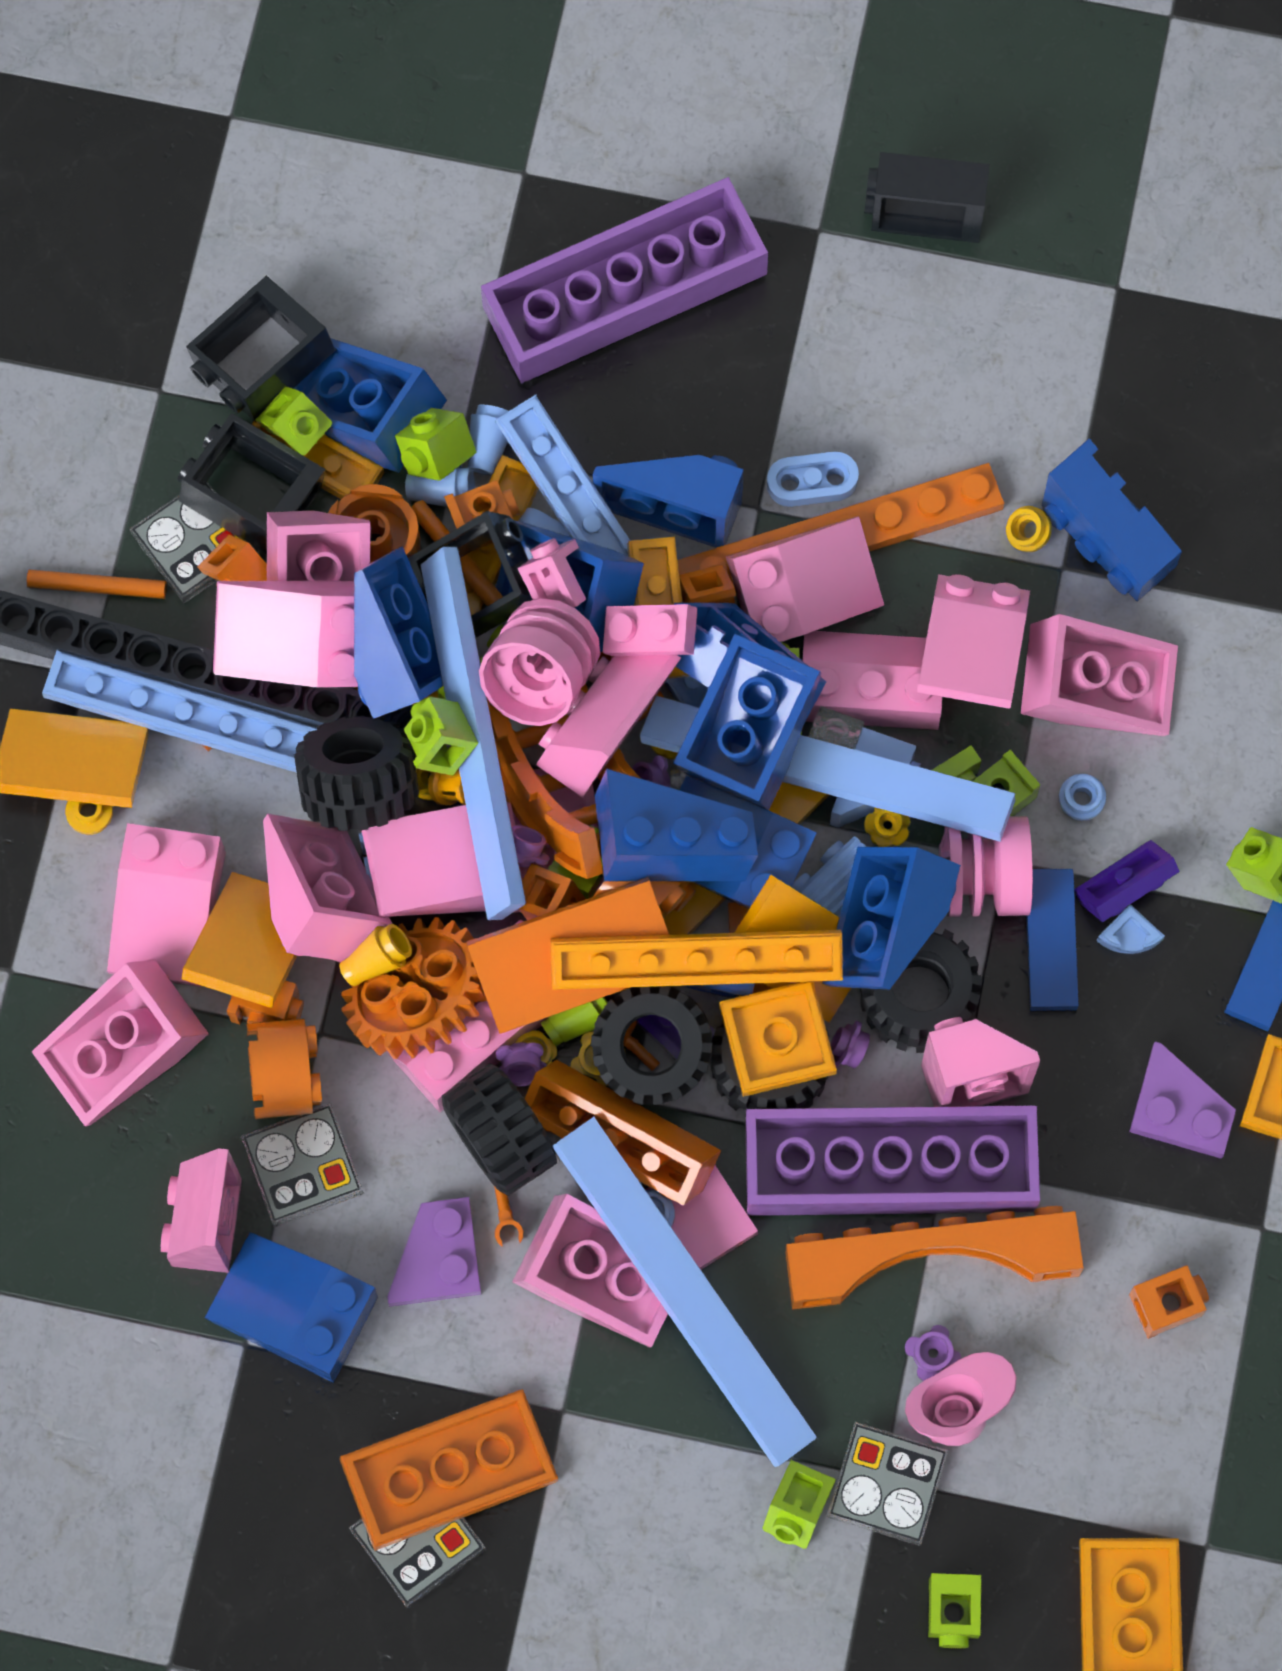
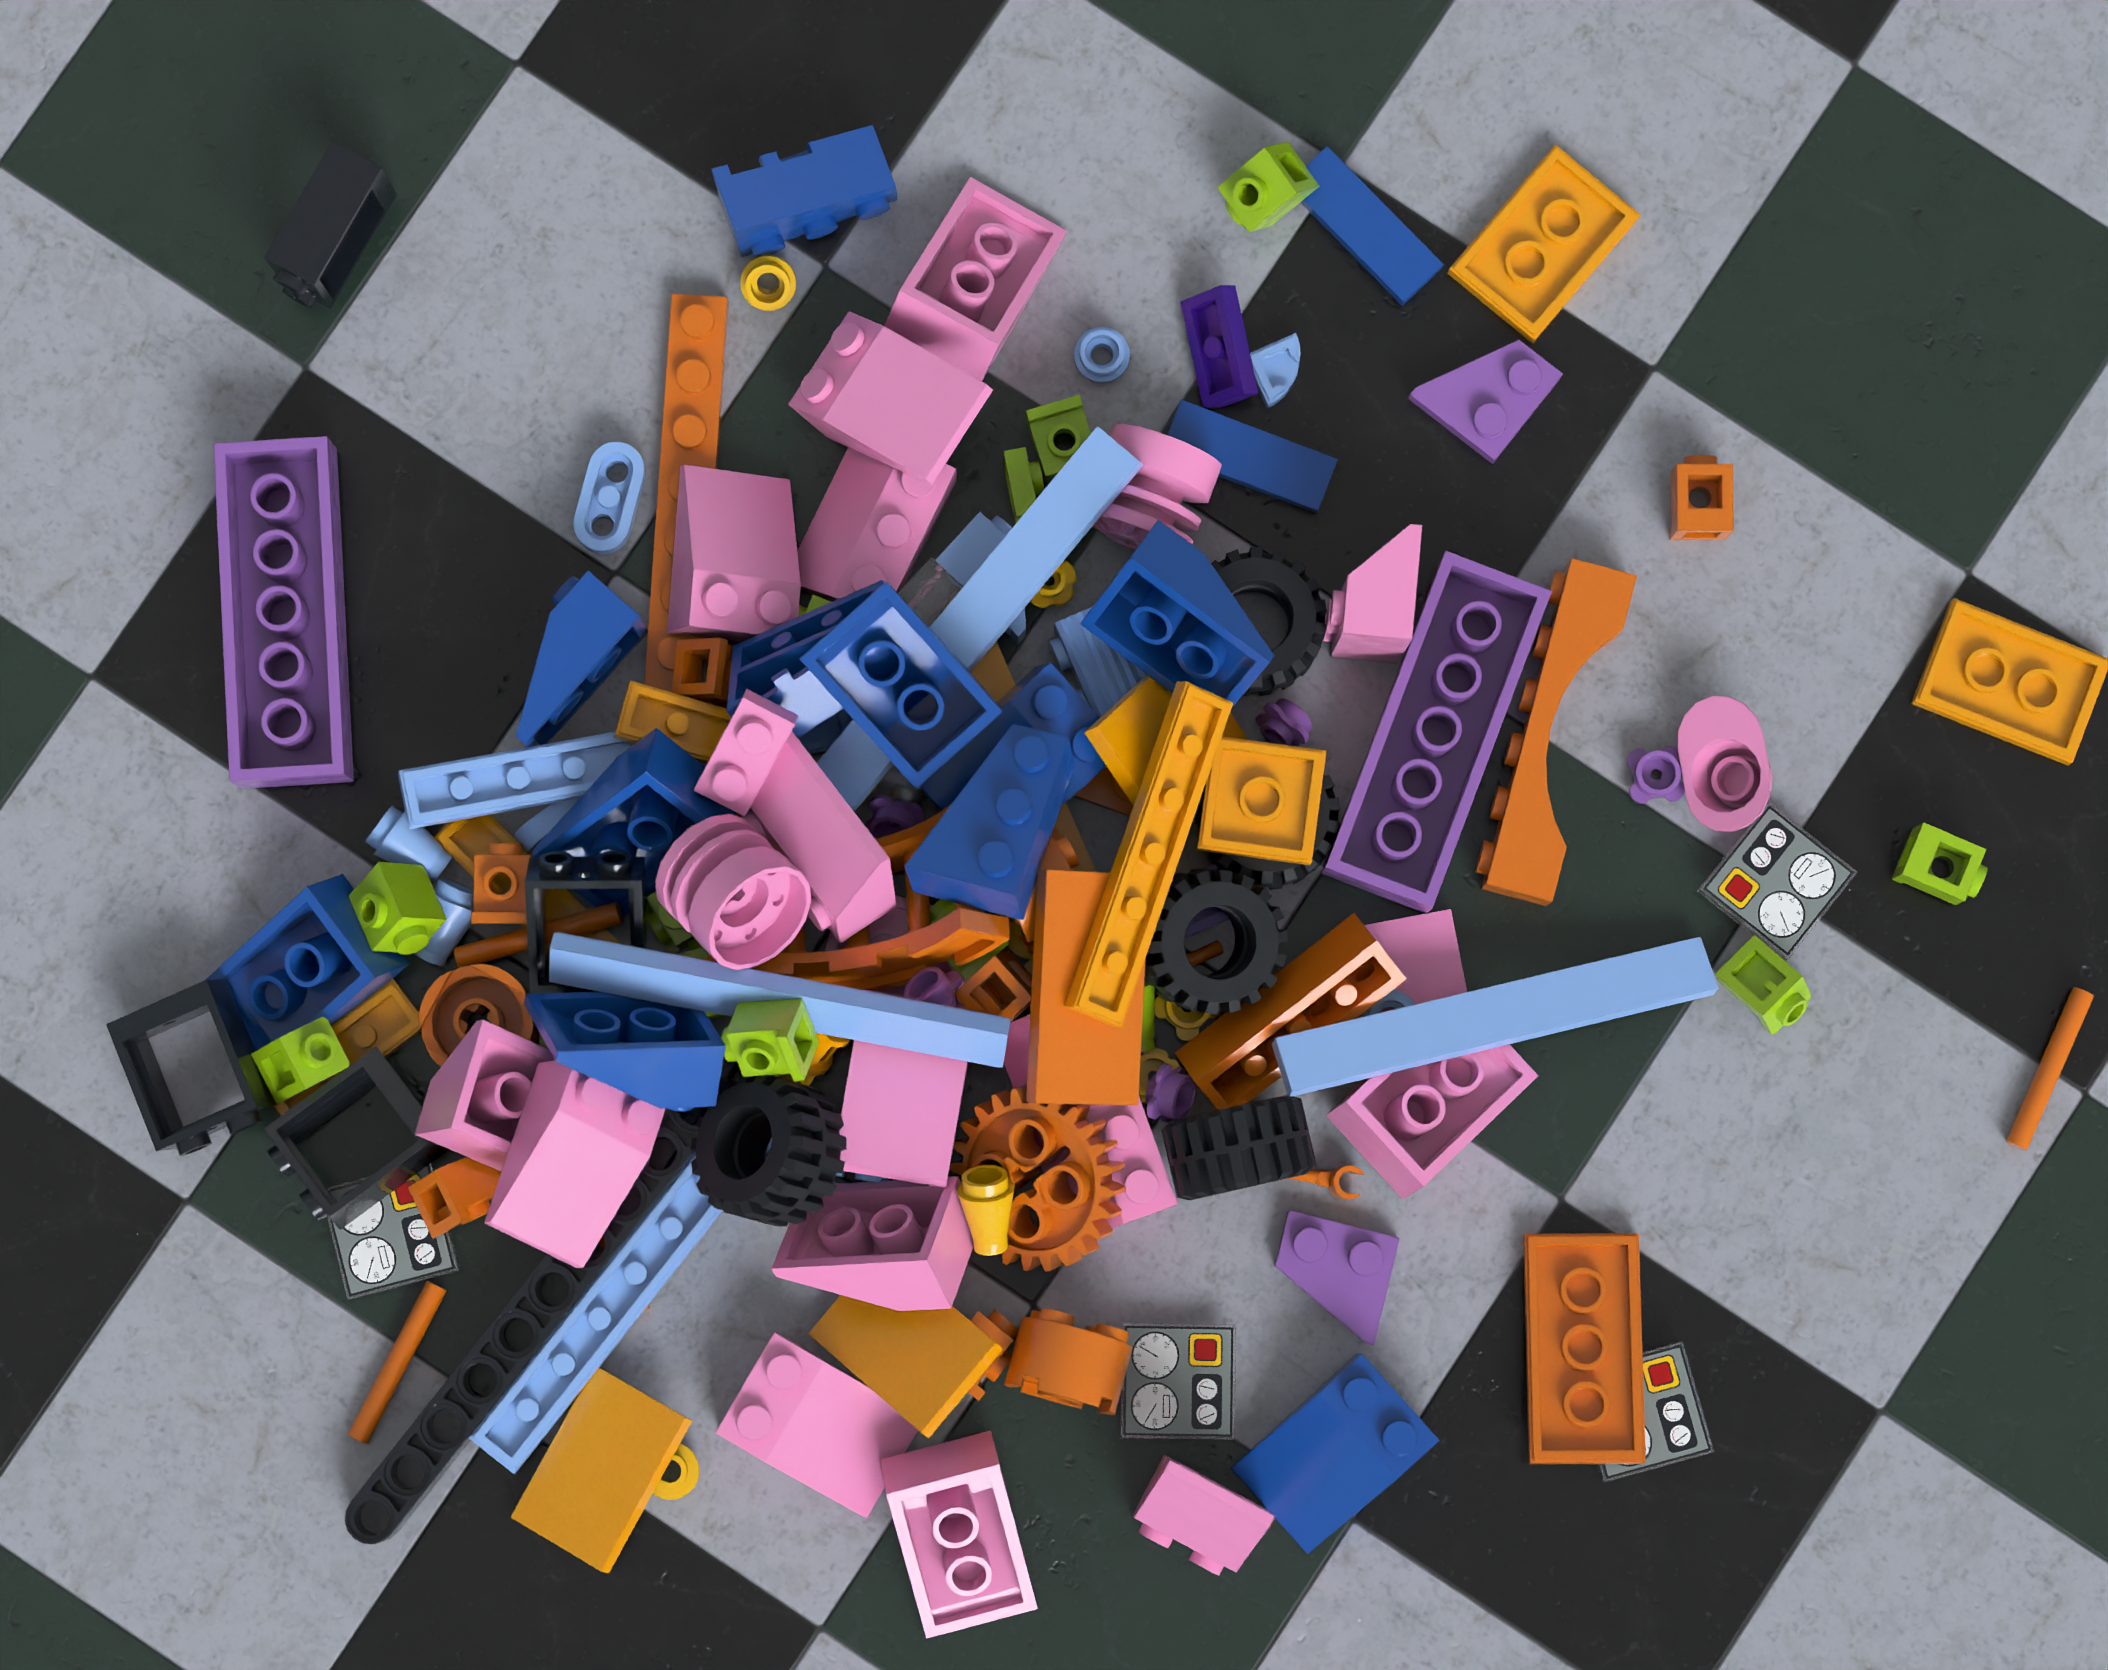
camera: 75 degrees left, 10 degrees up
(550, 574) = (633, 839): bright pink bracket -> none

